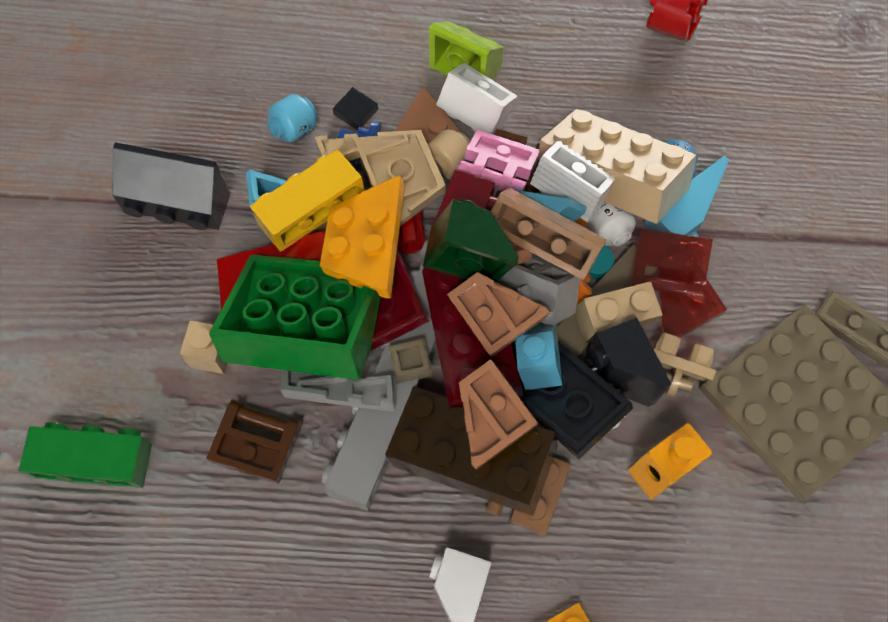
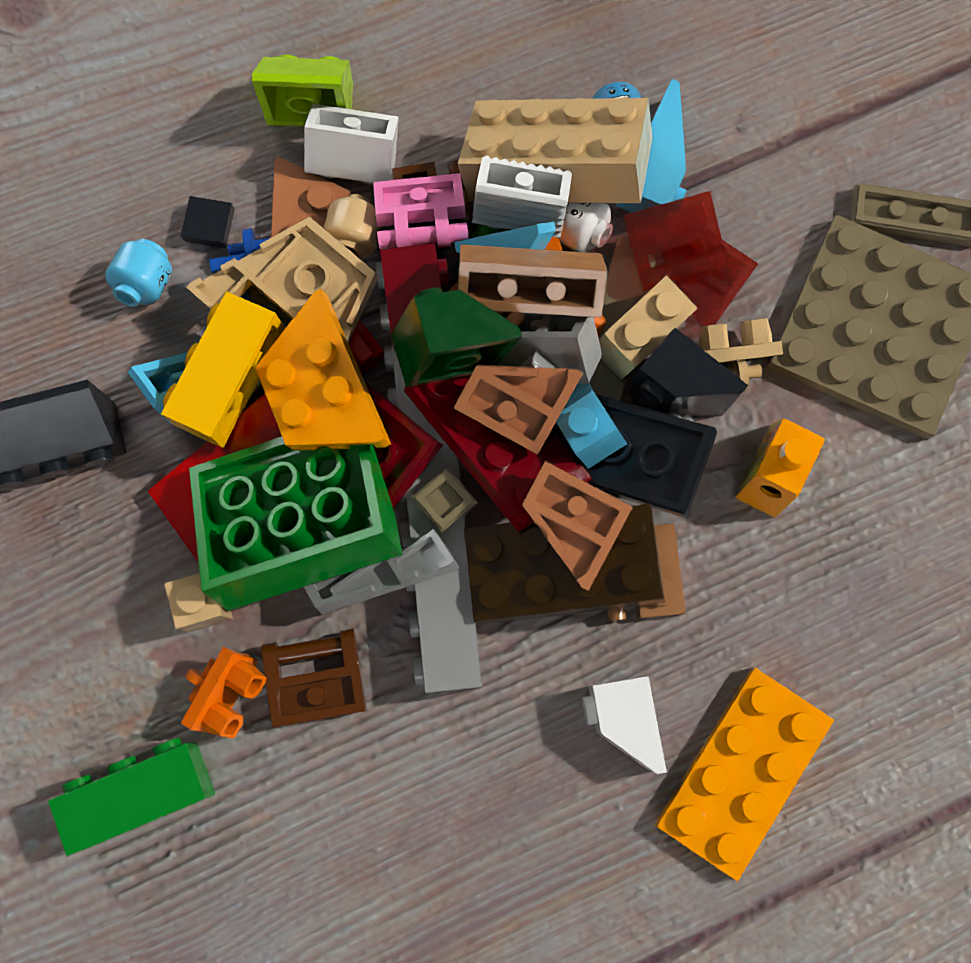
camera: 30 degrees left, 10 degrees up
(184, 415) = (218, 690): none -> orange hips

